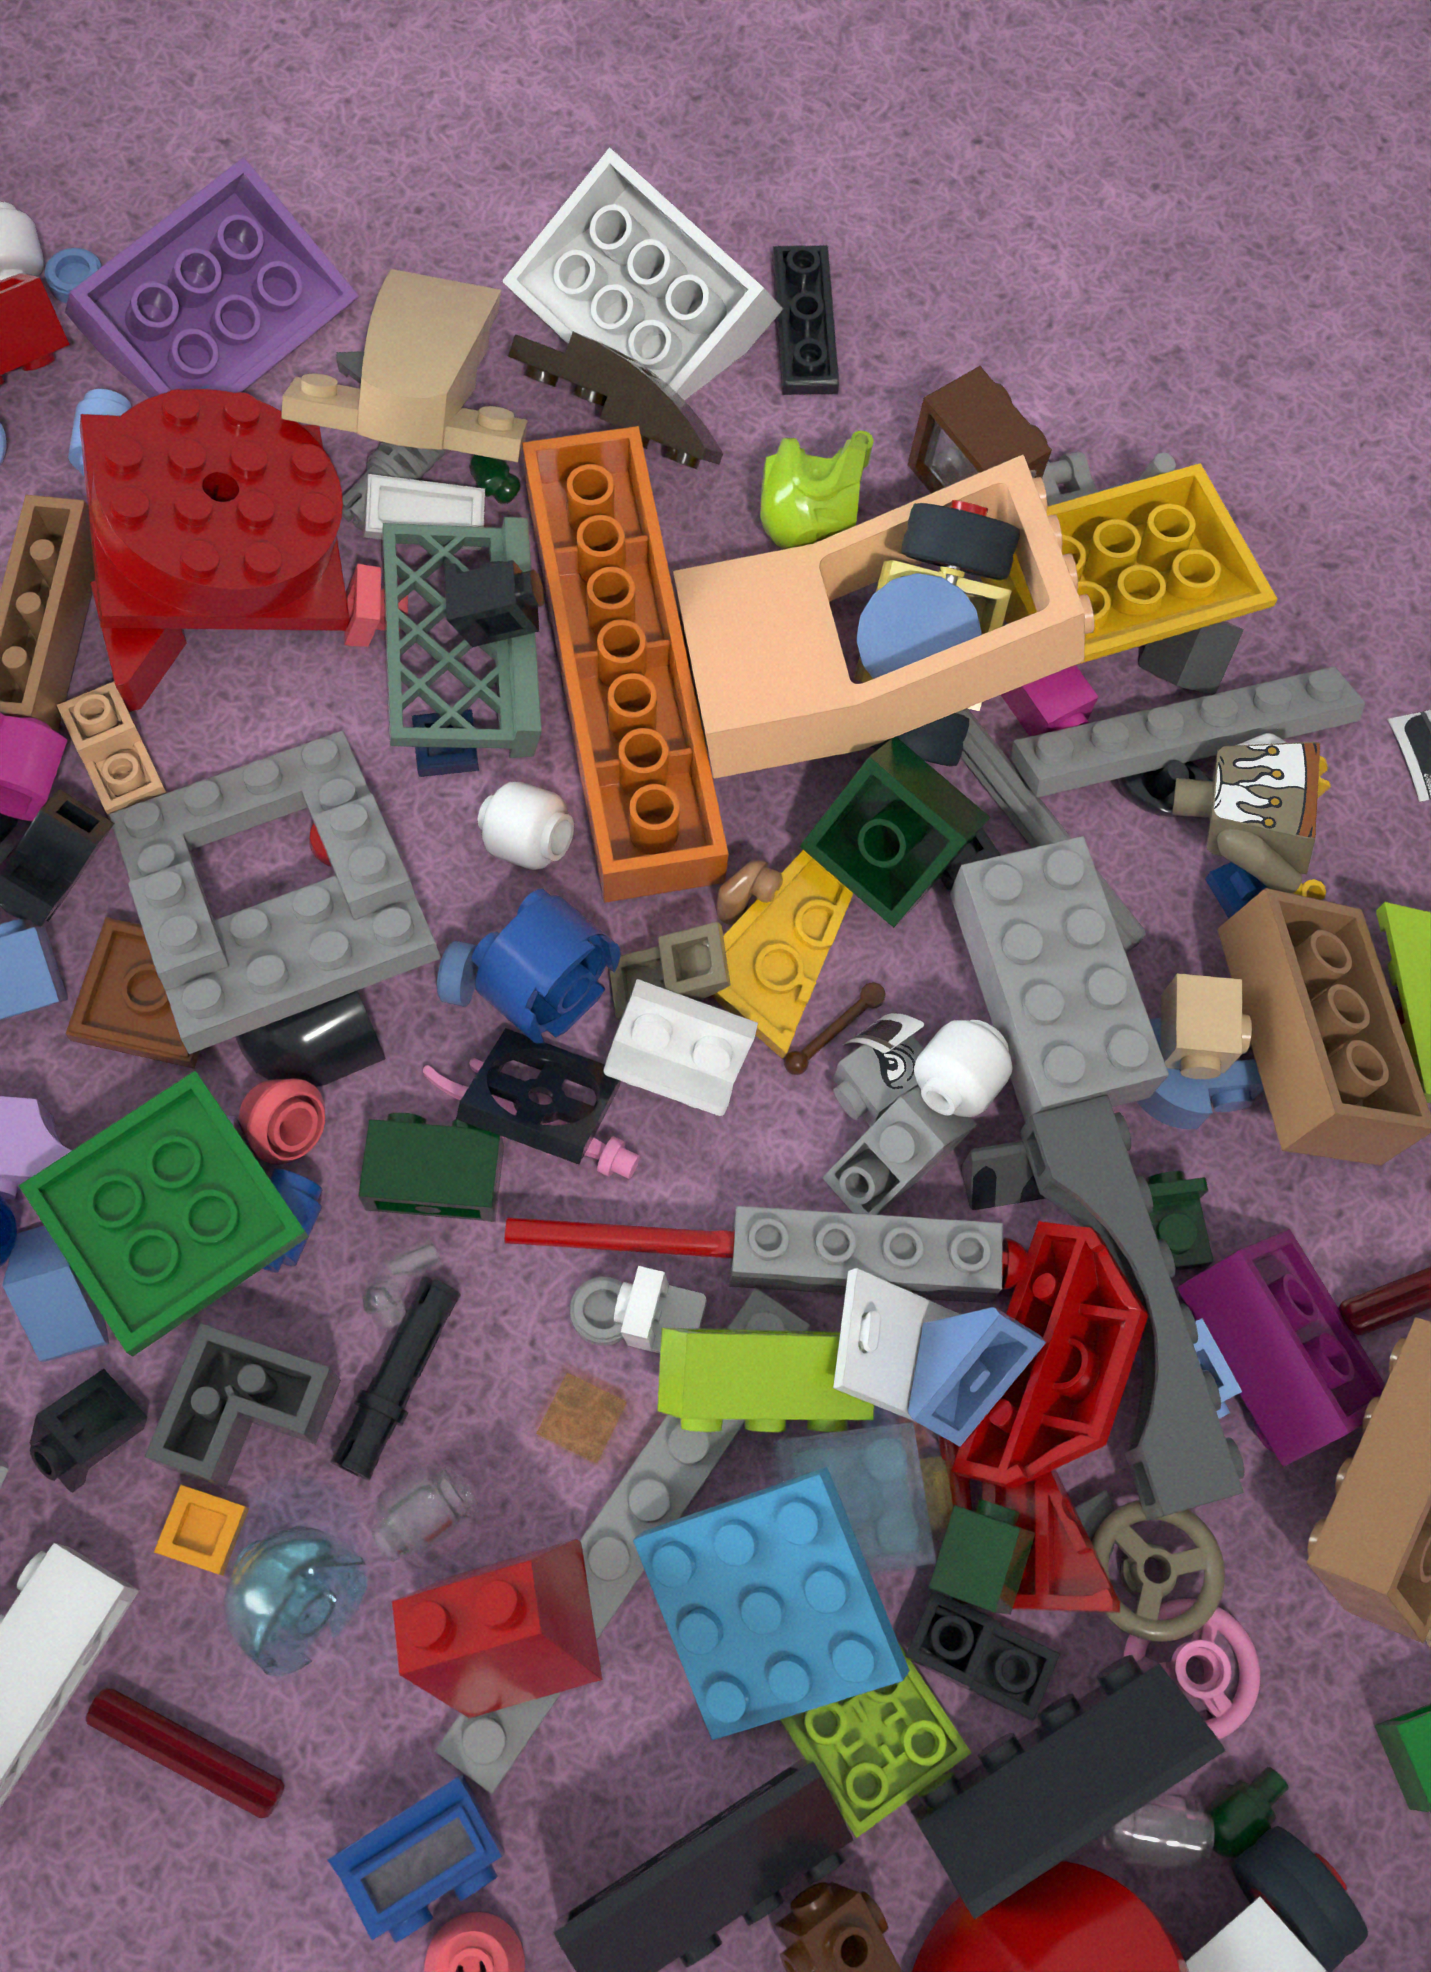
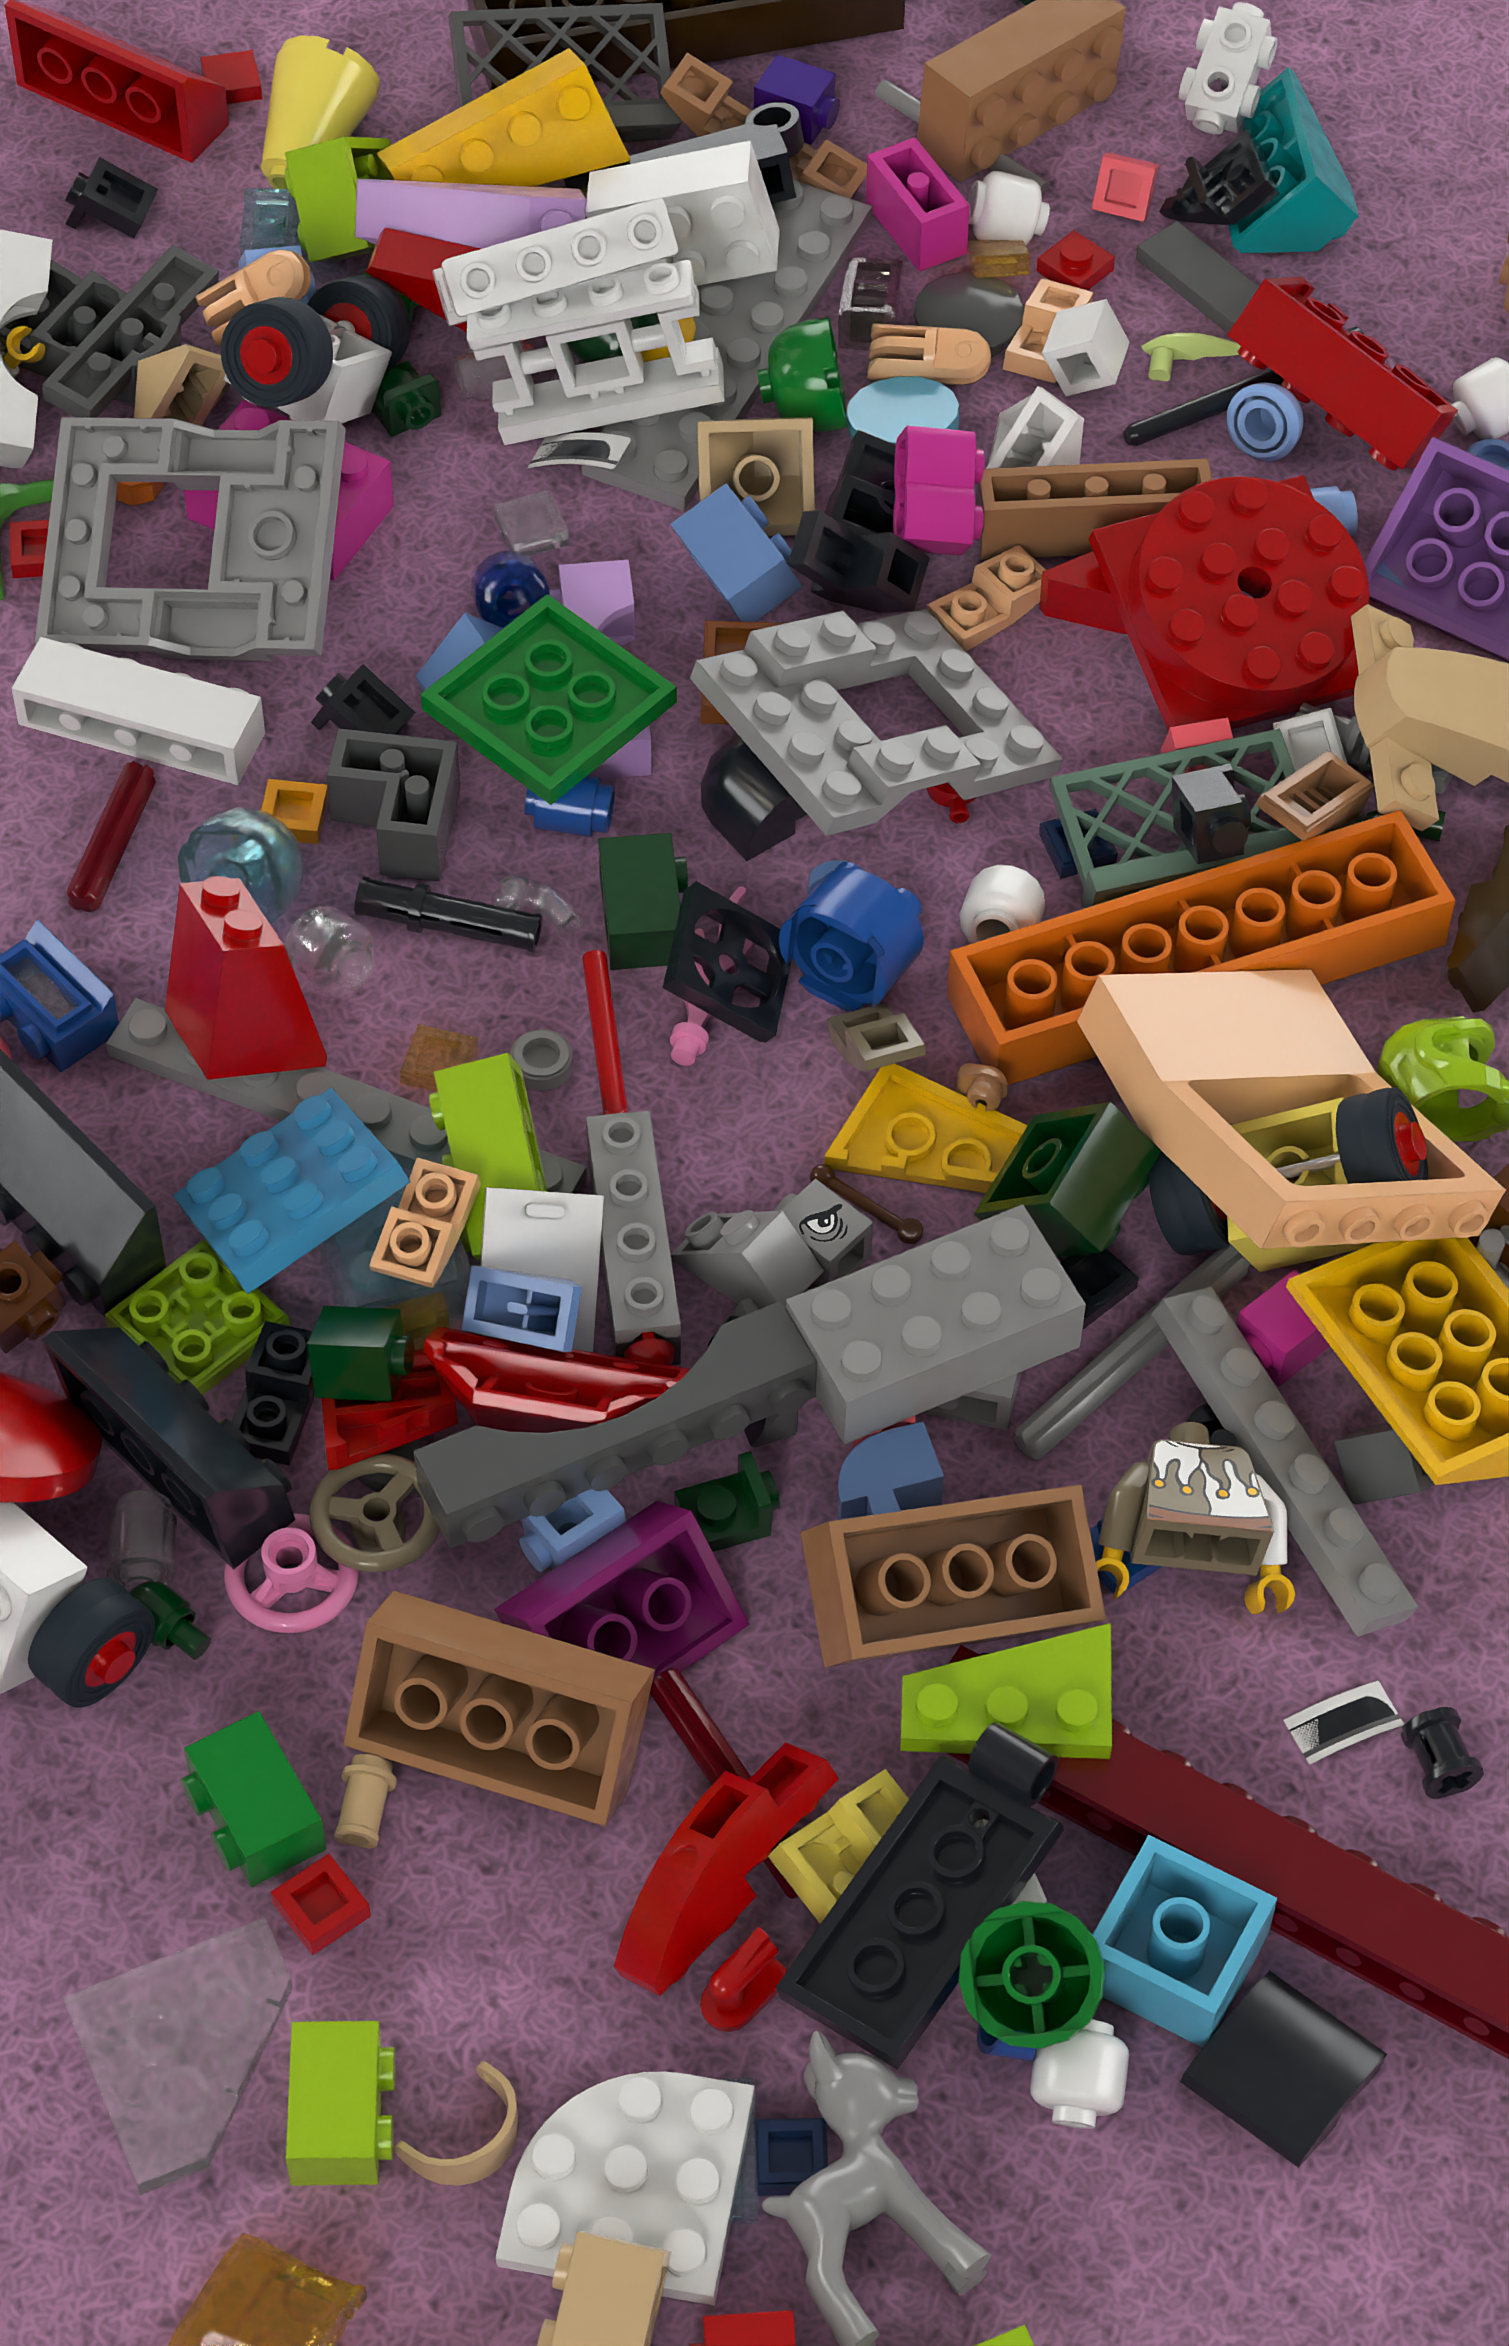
camera: 85 degrees right, 15 degrees down
(282, 1119) = (660, 784): coral cone -> none
(489, 508) = (1317, 797): none -> medium nougat slope
(653, 1305) = (548, 1080): white bracket -> none
(679, 1048) = (799, 1060): white bracket -> none
(868, 1460) = (426, 1224): none -> light nougat slope
(888, 1032) = (877, 1228): sticker -> none
(913, 621) = (1286, 1128): medium blue tile -> none
(963, 1068) = (820, 1253): white head -> none
(1203, 1025) = (921, 1459): tan brick -> none

